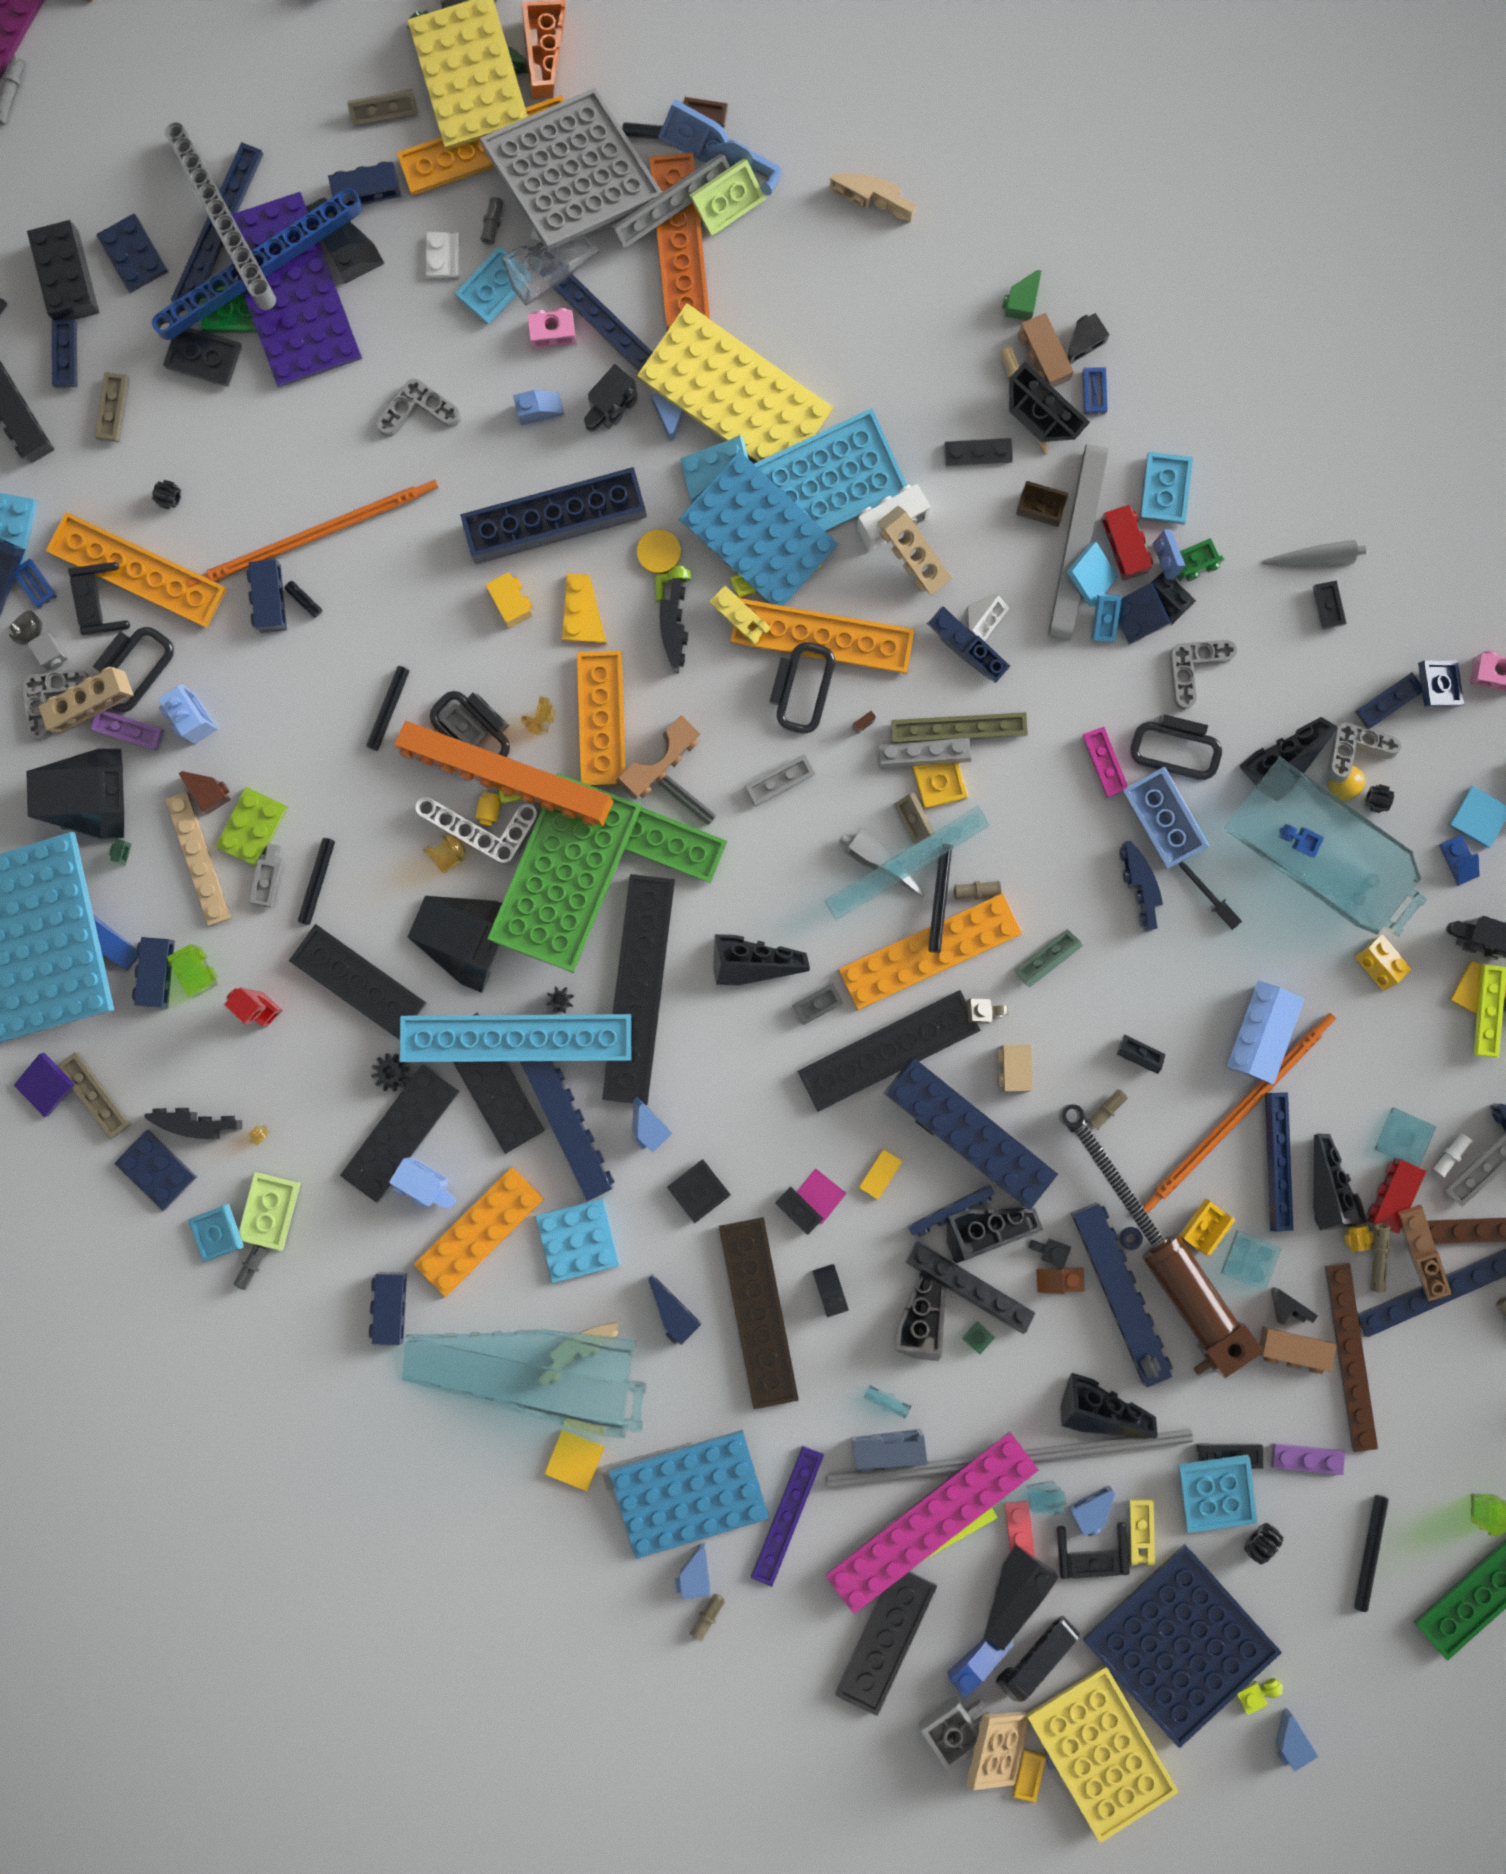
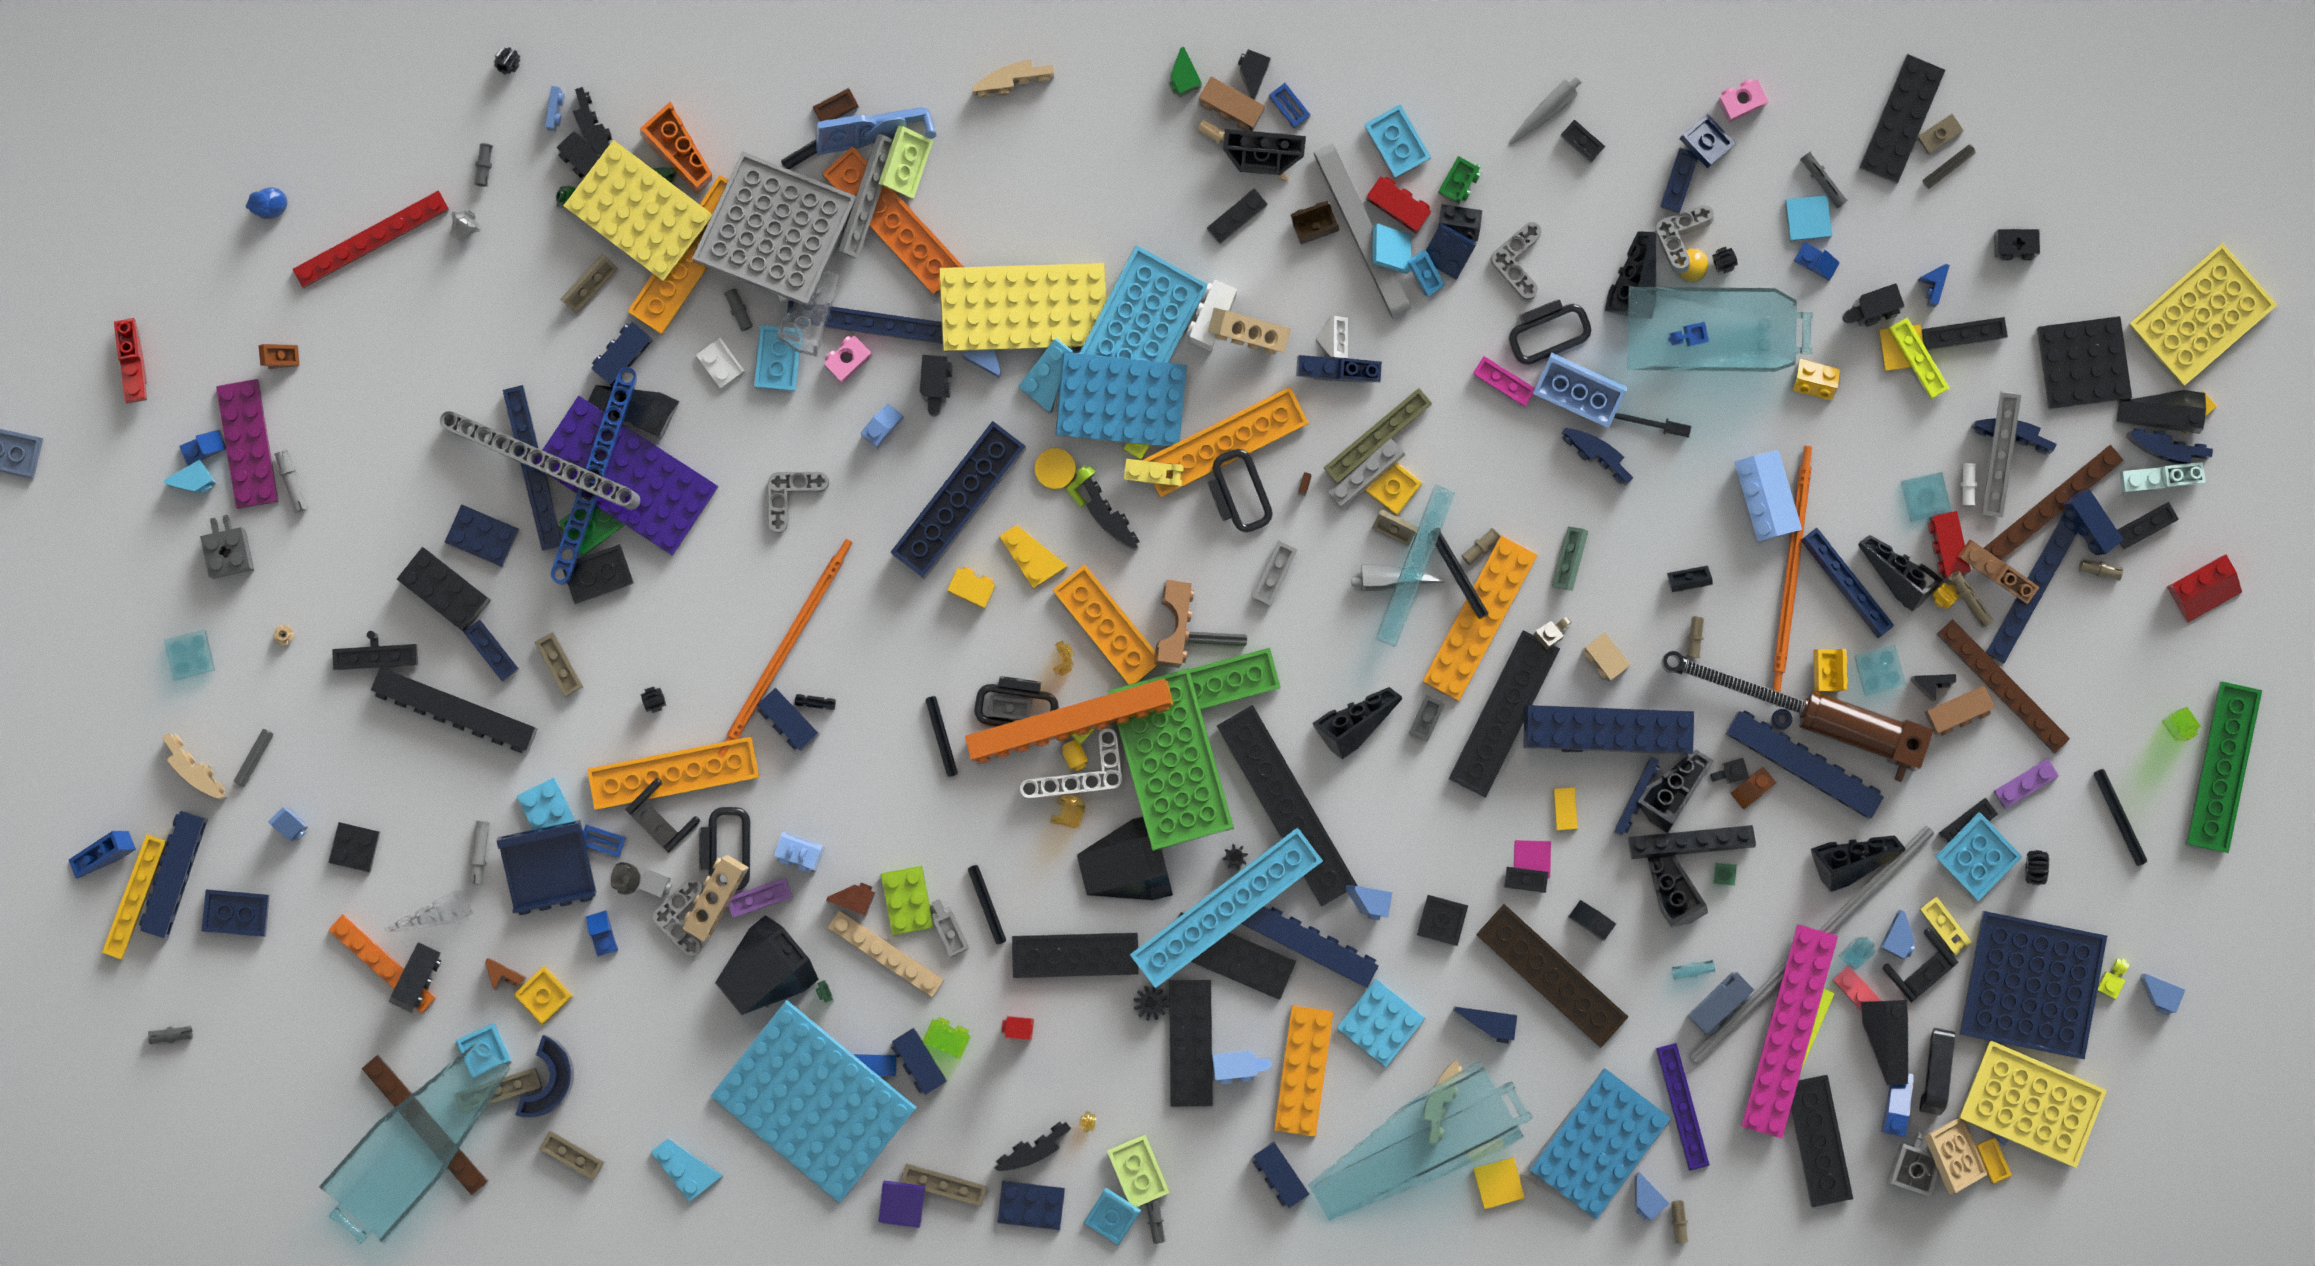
camera: 40 degrees left, 0 degrees up
(1150, 1366) = (1862, 800): dark grey plate -> none
(1168, 554) = (1436, 192): medium blue plate -> none

